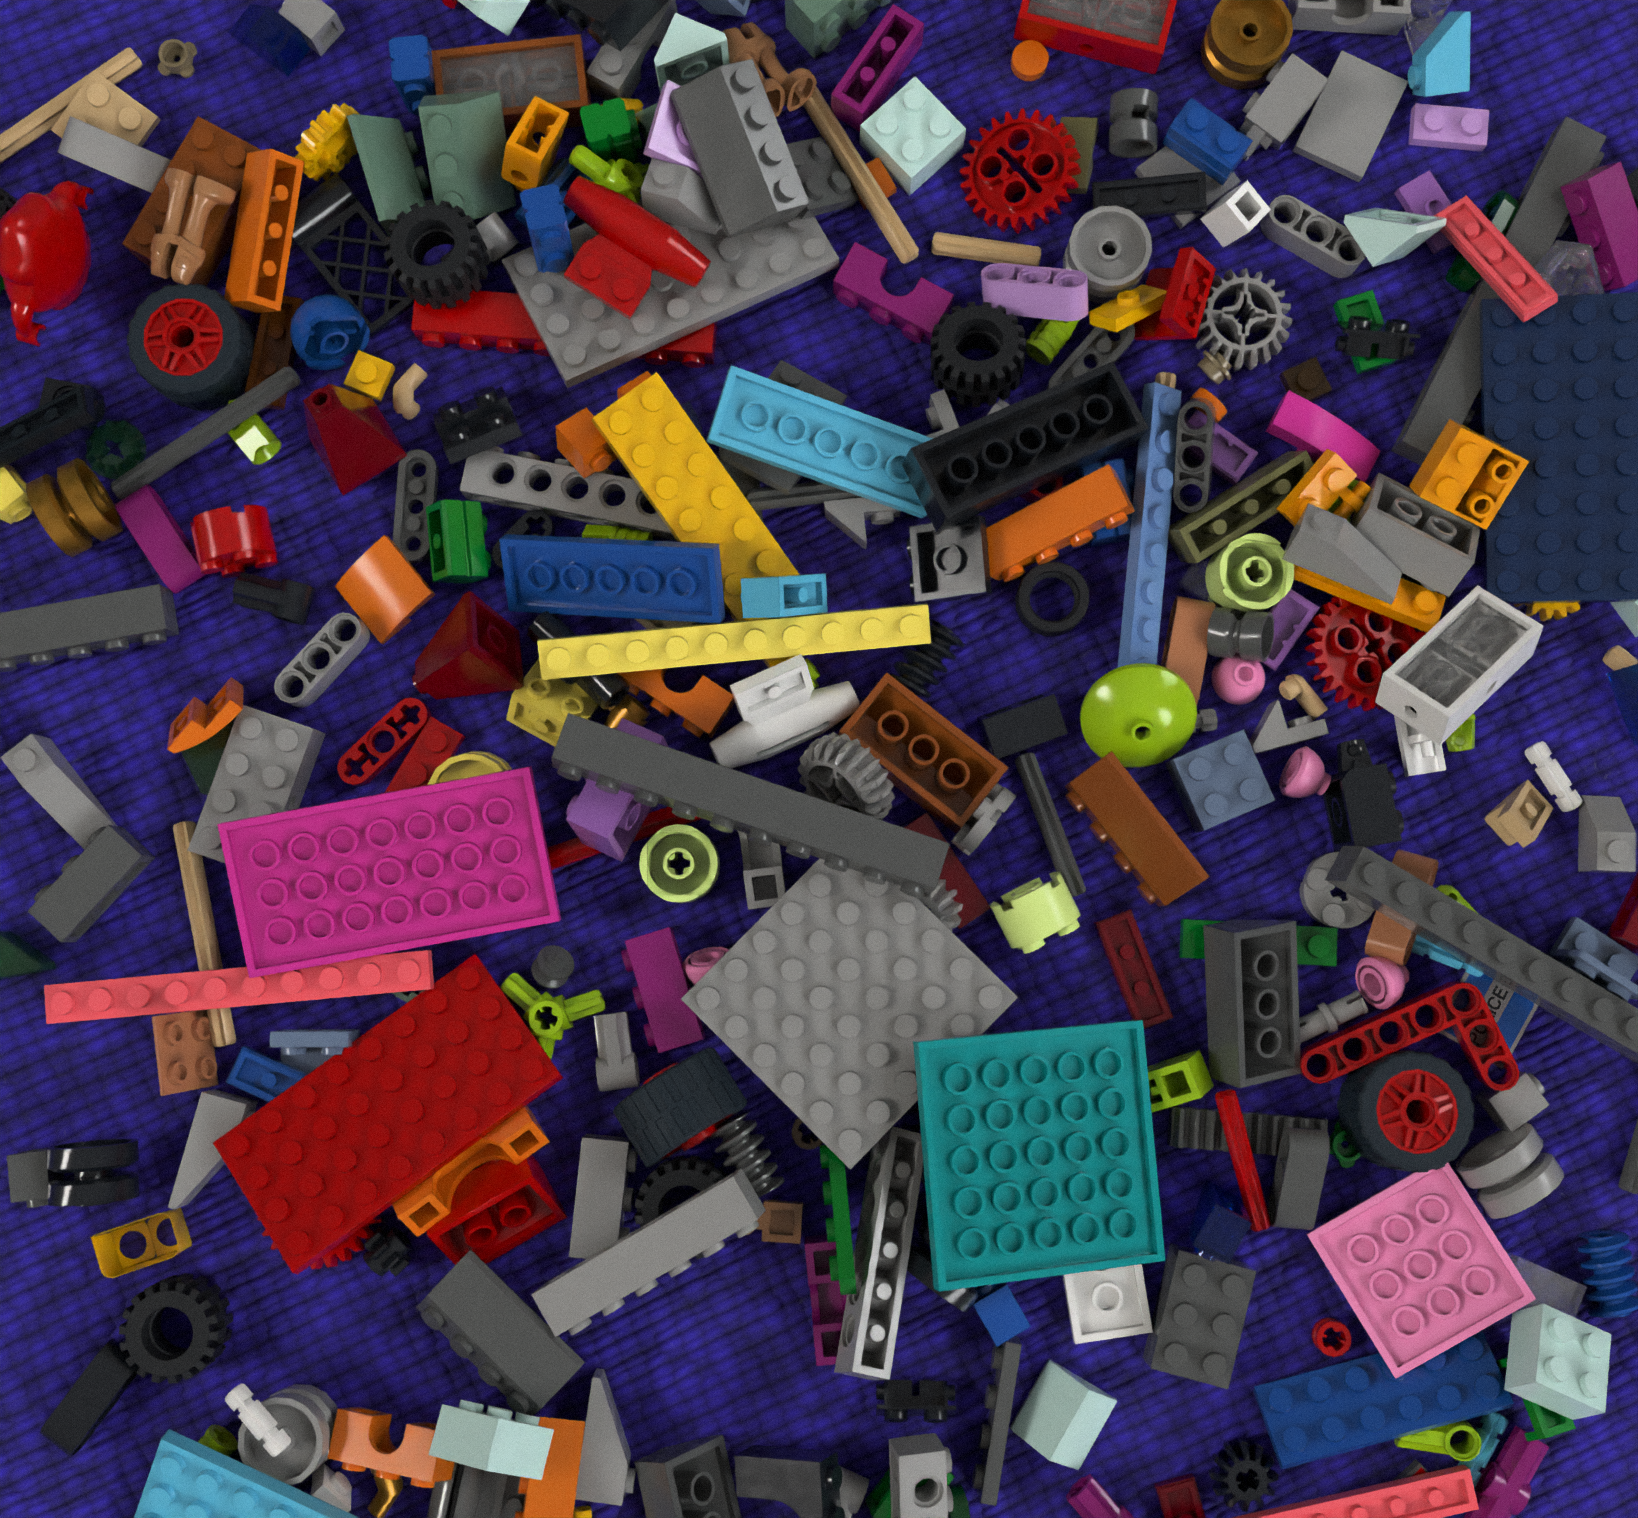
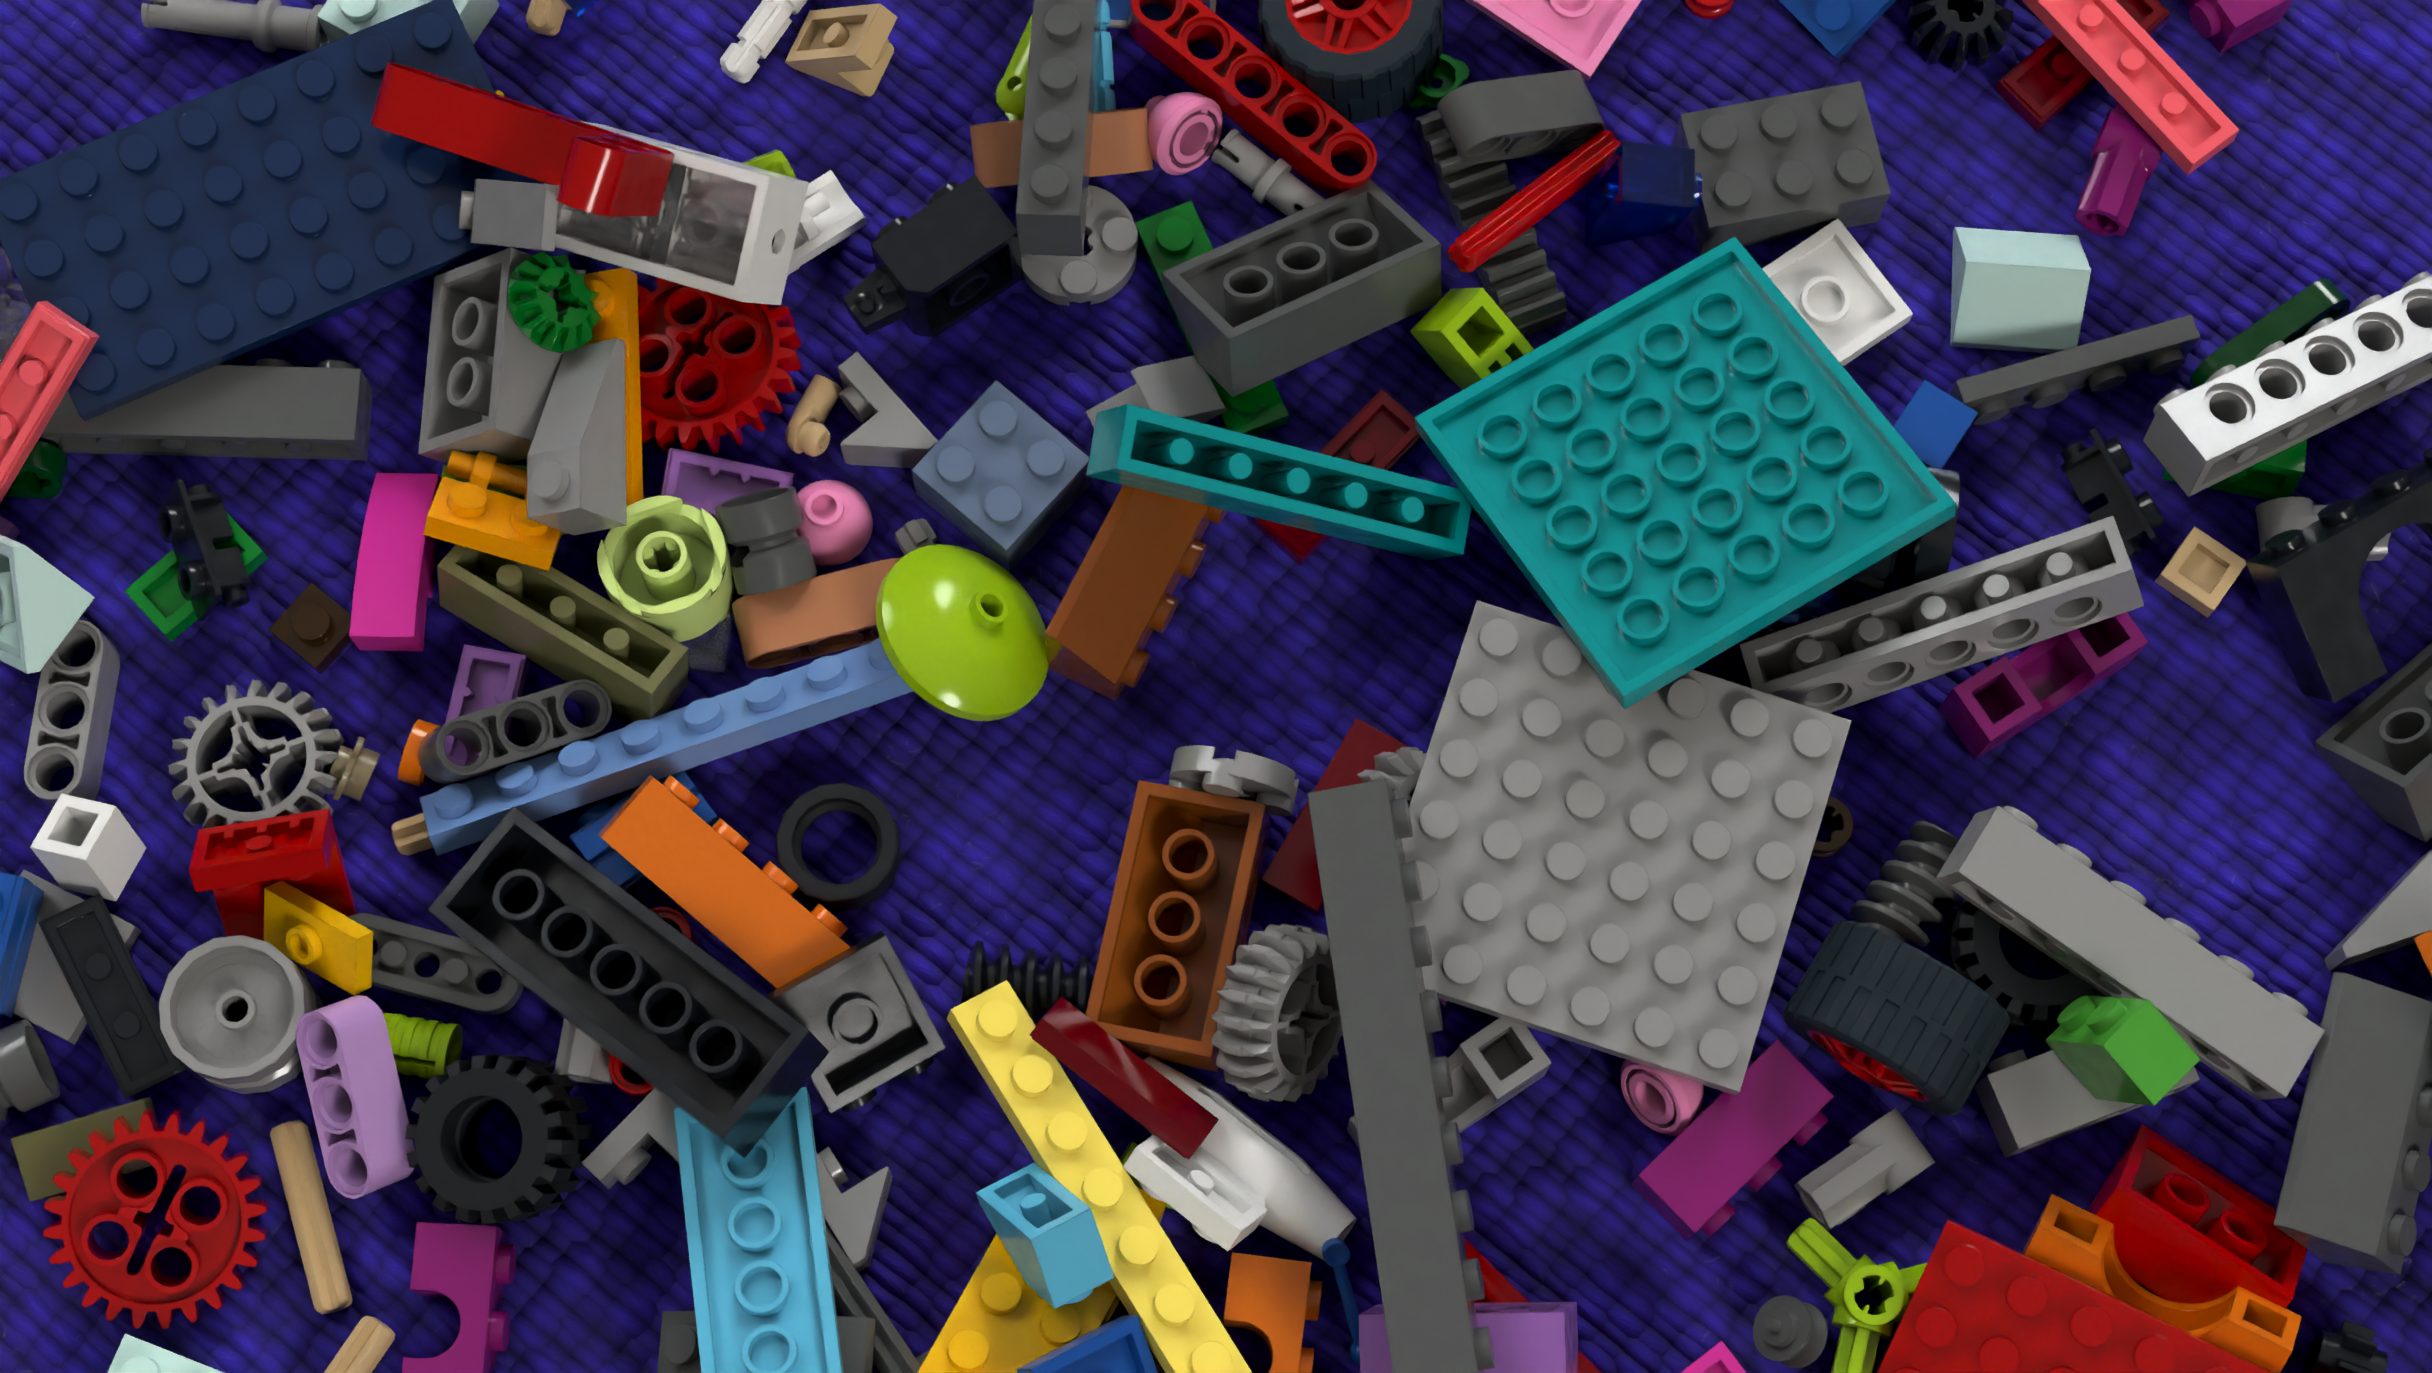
camera: 120 degrees left, 10 degrees down
(598, 1216) = (2121, 1048): none -> bright green brick
(664, 848) = (1542, 1172): yellowish green brick -> none
(706, 747) = (1337, 1255): none -> blue hinge
(781, 1221) = (1967, 793): medium nougat plate -> none
(839, 1225) = (1937, 699): green plate -> none
(847, 1425) = (2201, 572): none -> tan plate
(849, 679) = (1124, 1078): none -> dark red tile
(1022, 725) = (1056, 800): black hinge -> none
(1036, 912) = (1332, 643): yellowish green brick -> none
(1049, 822) = (1187, 692): dark grey axle -> none
(1137, 920) = (1278, 483): none -> teal brick
(1222, 892) = (1170, 387): none -> light grey slope
(1304, 775) = (933, 363): bright pink brick -> none
(1428, 559) = (536, 311): none -> green gear
(1468, 474) = (370, 321): light orange slope -> none
(1492, 571) = (510, 214): none -> light grey slope
(1498, 624) = (591, 165): none -> red beam

